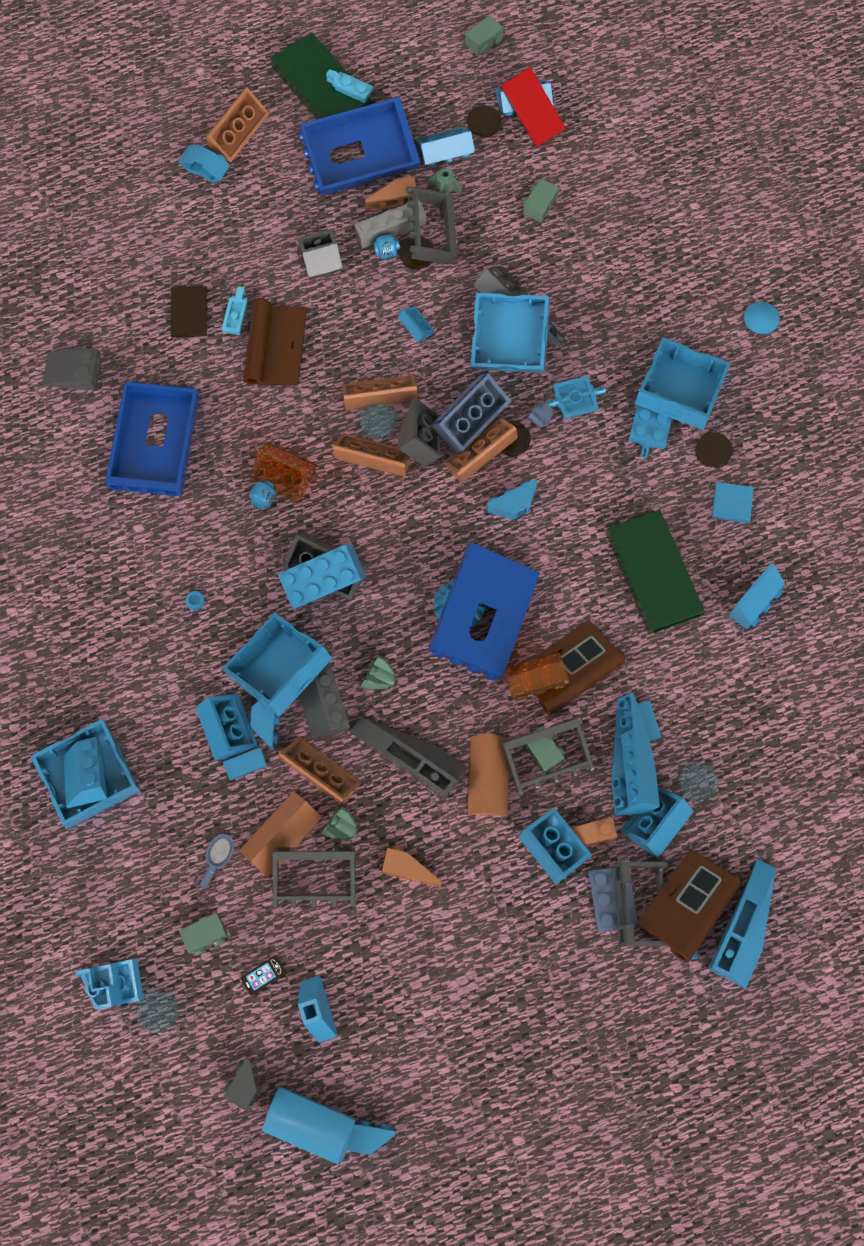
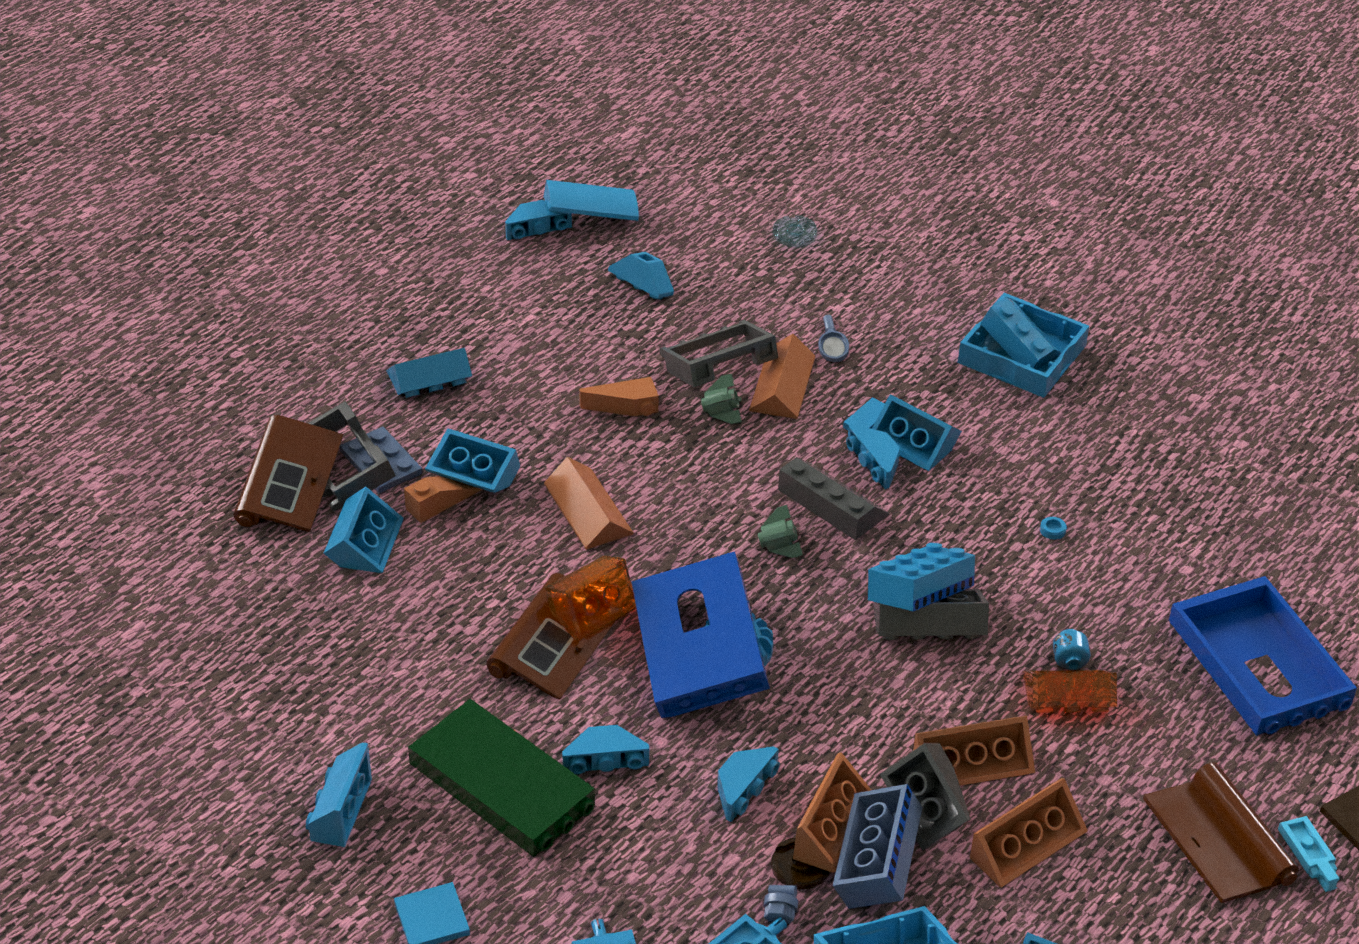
camera: 150 degrees right, 30 degrees down
(113, 983) = (853, 229): dark azure slope -> none
(203, 934) = (796, 284): sand green brick -> none
(245, 1086) = (671, 202): dark grey slope -> none
(263, 975) = (714, 284): tile -> none
(277, 664) = (903, 483): dark azure tile -> none
(320, 770) = (781, 432): nougat slope -> none
(377, 421) = (996, 798): clear light blue tile -> none
(414, 756) = (687, 481): dark grey wedge -> none
(539, 976) = (430, 372): none -> dark azure slope
(545, 753) = (538, 544): sand green brick -> none
(558, 728) = (517, 567): dark grey hinge -> none
(584, 560) = (605, 750): none -> dark azure slope
(633, 762) = (419, 566): dark azure wedge -> none
(649, 720) = (426, 623): dark azure tile -> none
(698, 788) = (330, 592): clear light blue tile -> none
(746, 929) = (213, 481): dark azure wedge -> none

